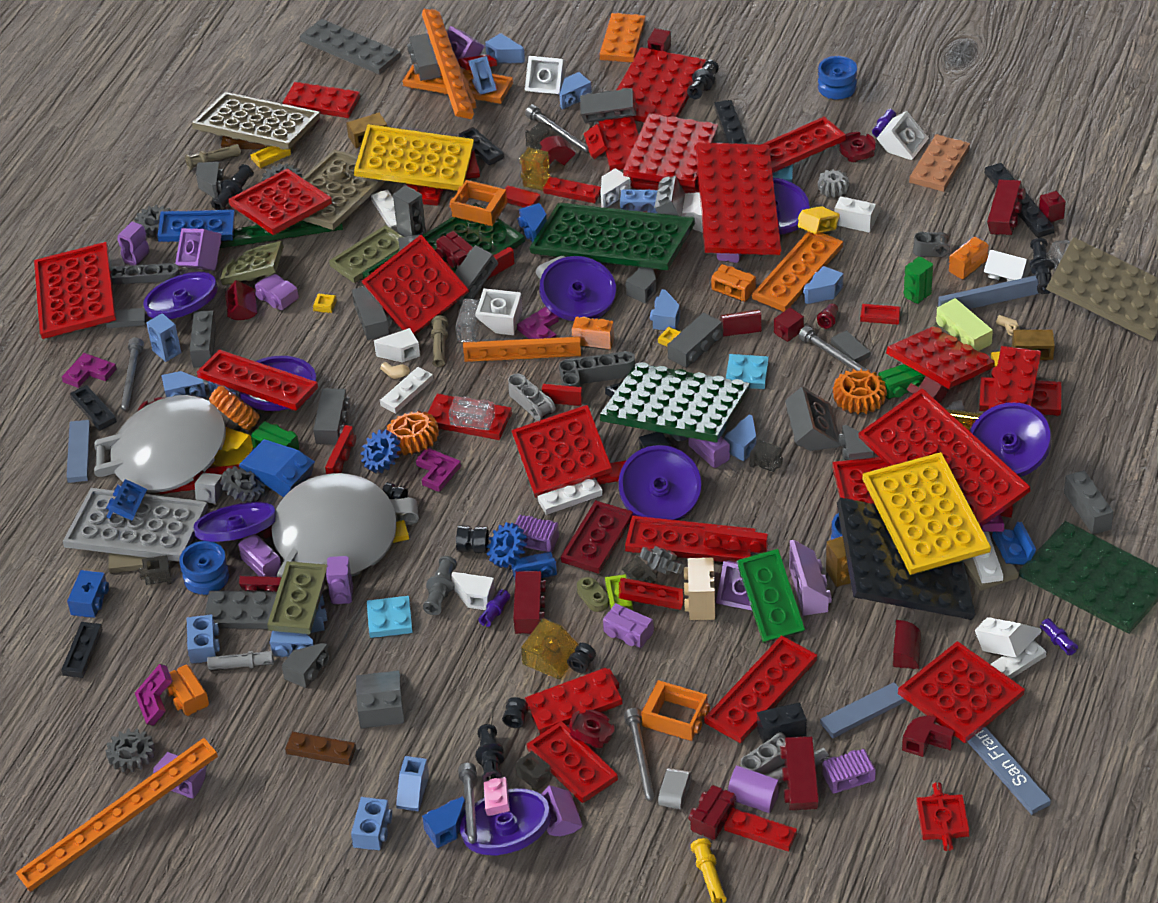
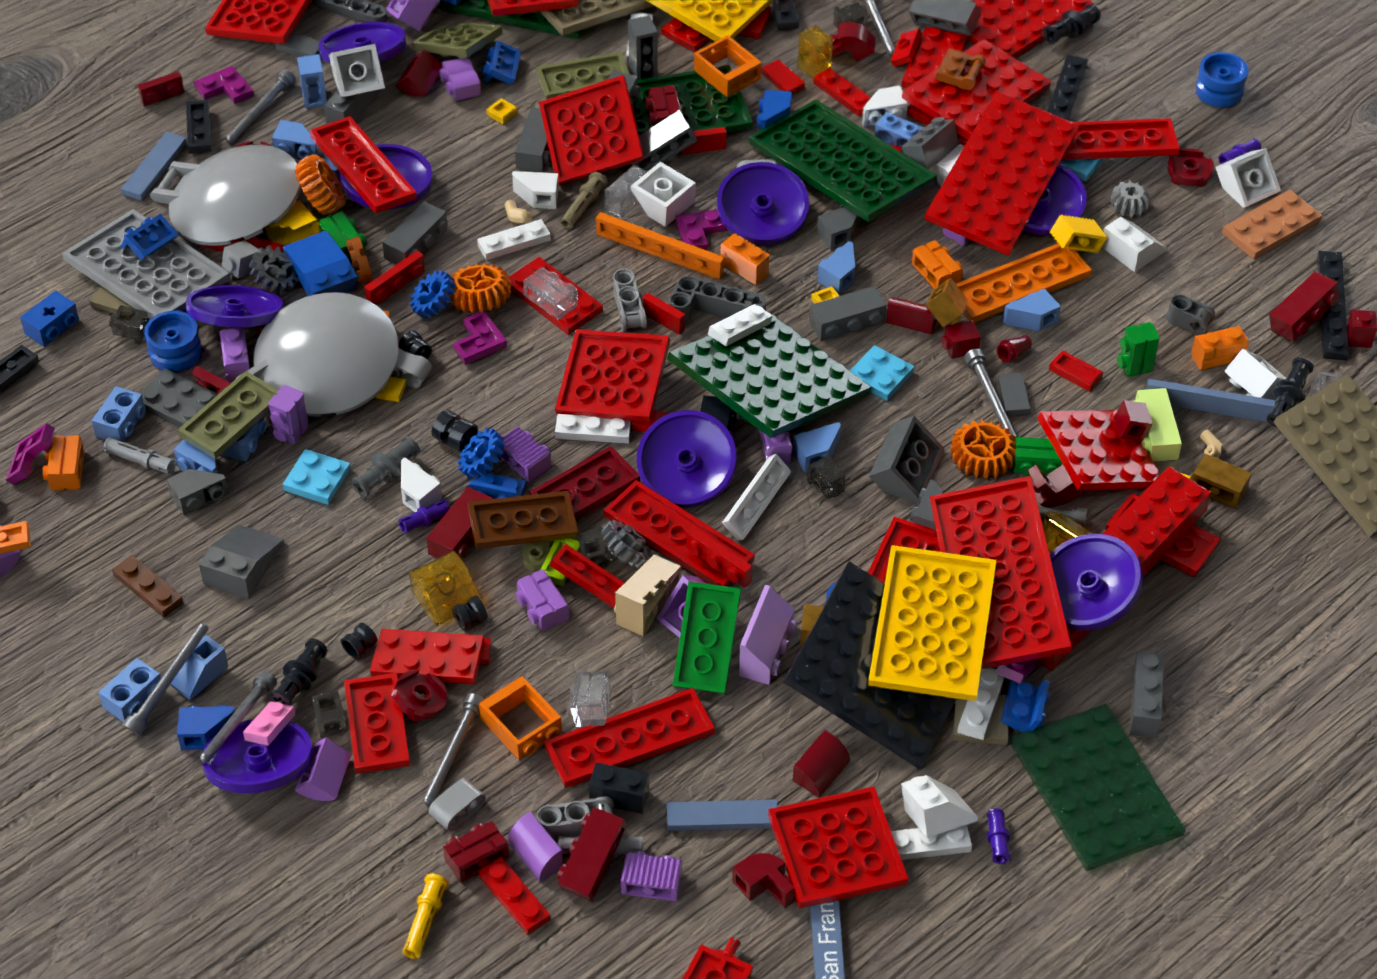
camera: 25 degrees right, 5 degrees up
(40, 392) = (161, 88): none -> dark red plate
(201, 313) = (357, 70): none -> white slope
(298, 268) = (501, 63): none -> blue bracket
(300, 442) = (359, 260): none -> dark orange plate
(392, 843) = (137, 720): none -> flat silver piece
(575, 575) = (522, 519): none -> reddish brown plate
(631, 376) = (740, 325): none -> white plate
(647, 139) = (954, 65): none -> dark orange plate
(716, 674) = (589, 699): none -> clear brick
(726, 490) = (756, 497): none -> white plate
(765, 302) = (947, 303): none -> pearl gold brick
(950, 327) = (1133, 420): none -> dark red brick

